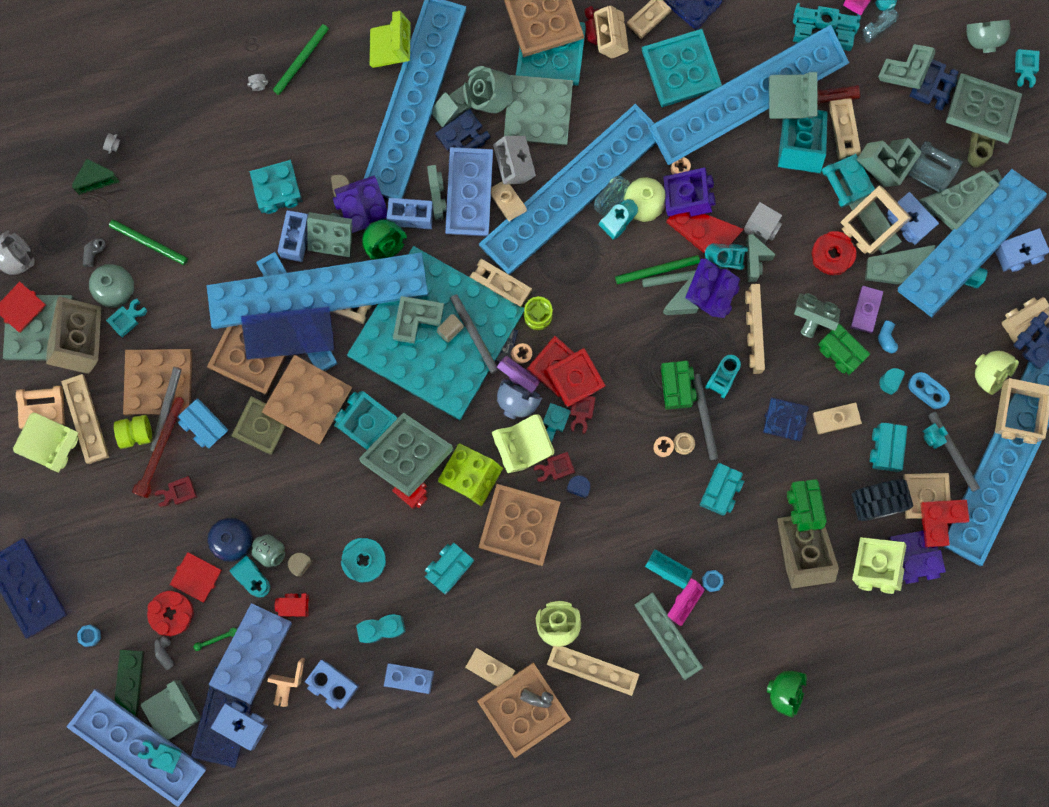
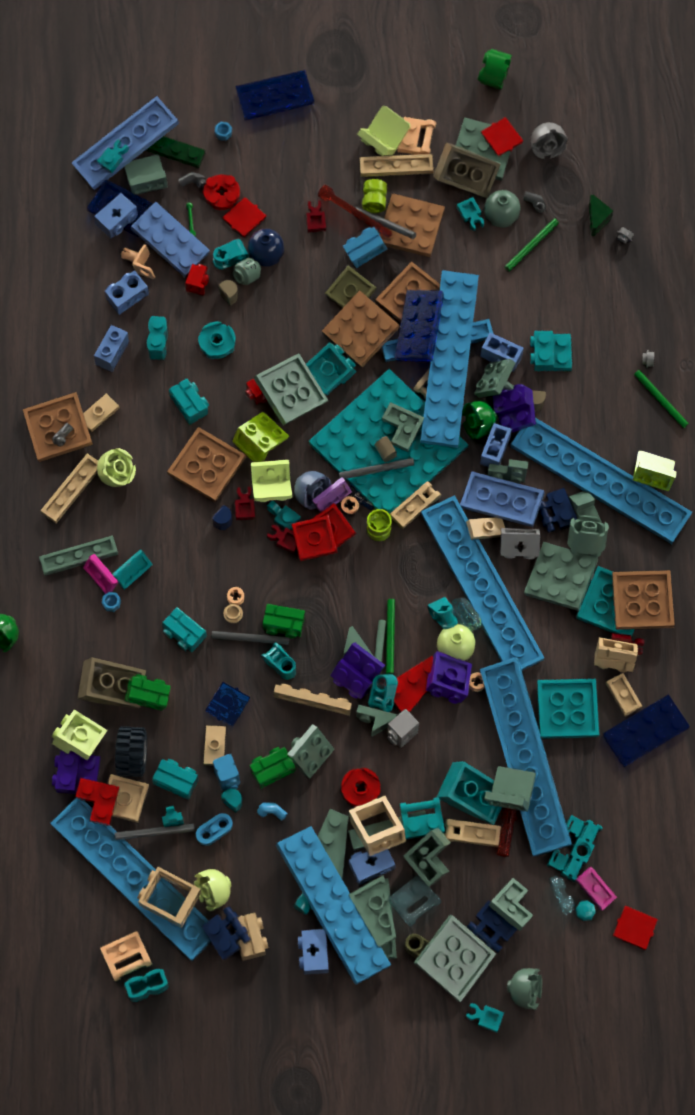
camera: 105 degrees right, 10 degrees down
(866, 309) = (302, 801): medium lavender plate -> none
(870, 392) = (226, 772): none -> dark azure brick

